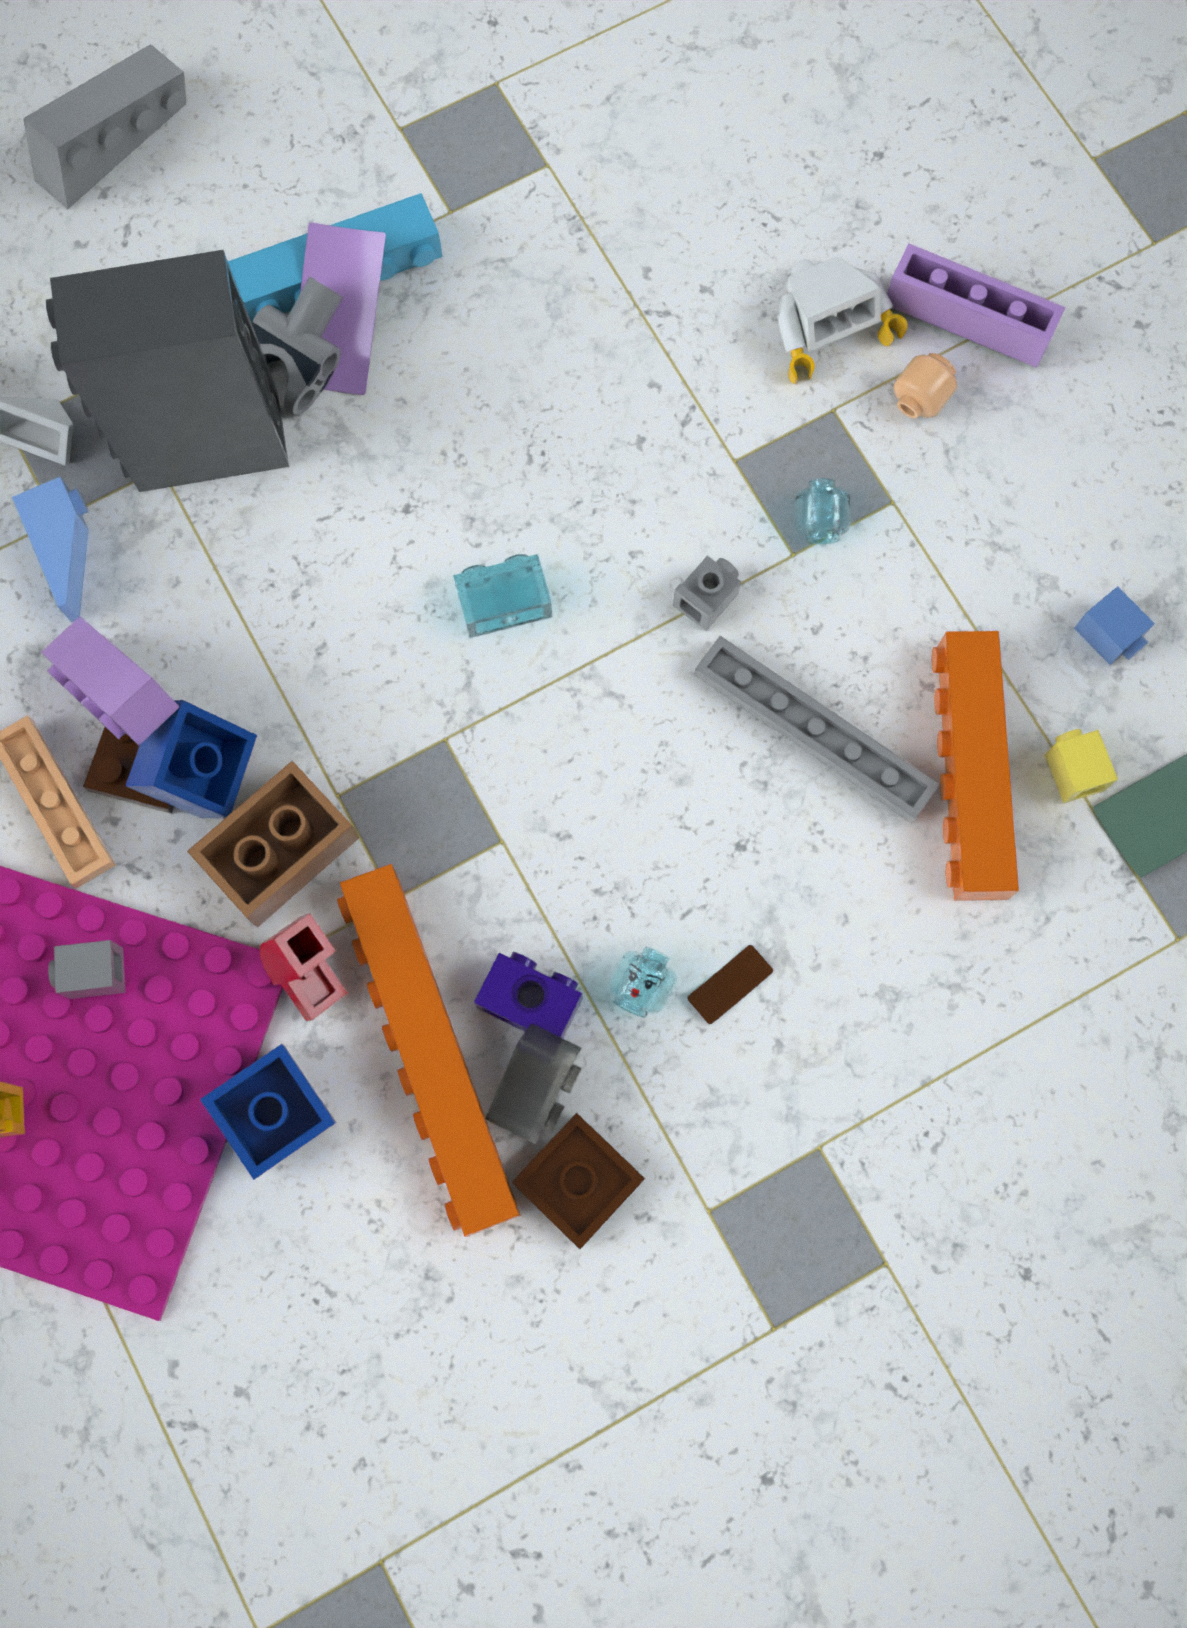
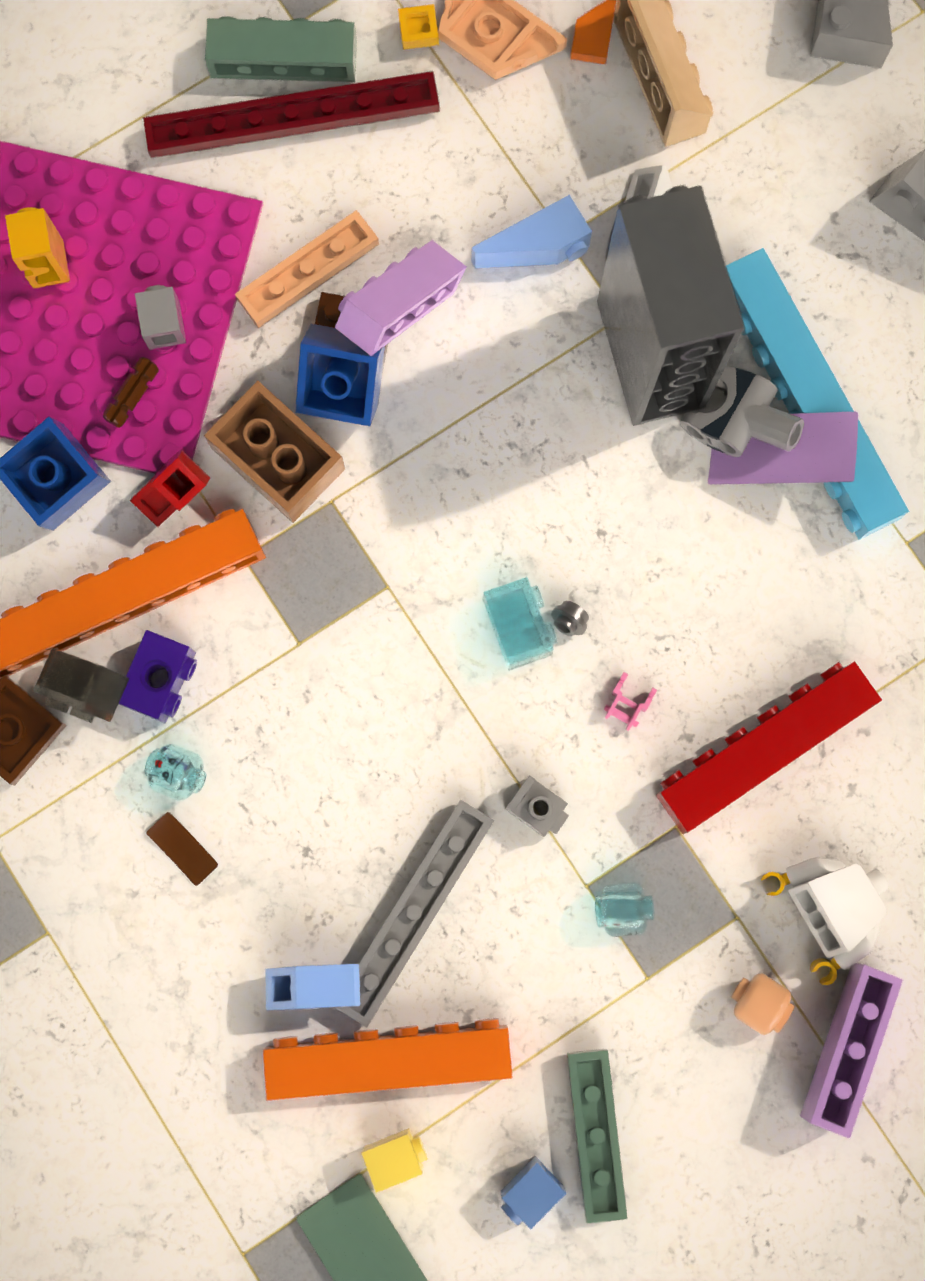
camera: 85 degrees right, 5 degrees up
(177, 1013) = (130, 392): none -> reddish brown axle
(501, 541) = (570, 618): none -> flat silver plate
(585, 504) = (619, 714): none -> bright pink piece
(659, 359) = (768, 747): none -> red brick
(896, 832) = (312, 987): none -> light blue slope
(1055, 560) = (597, 1136): none -> sand green plate

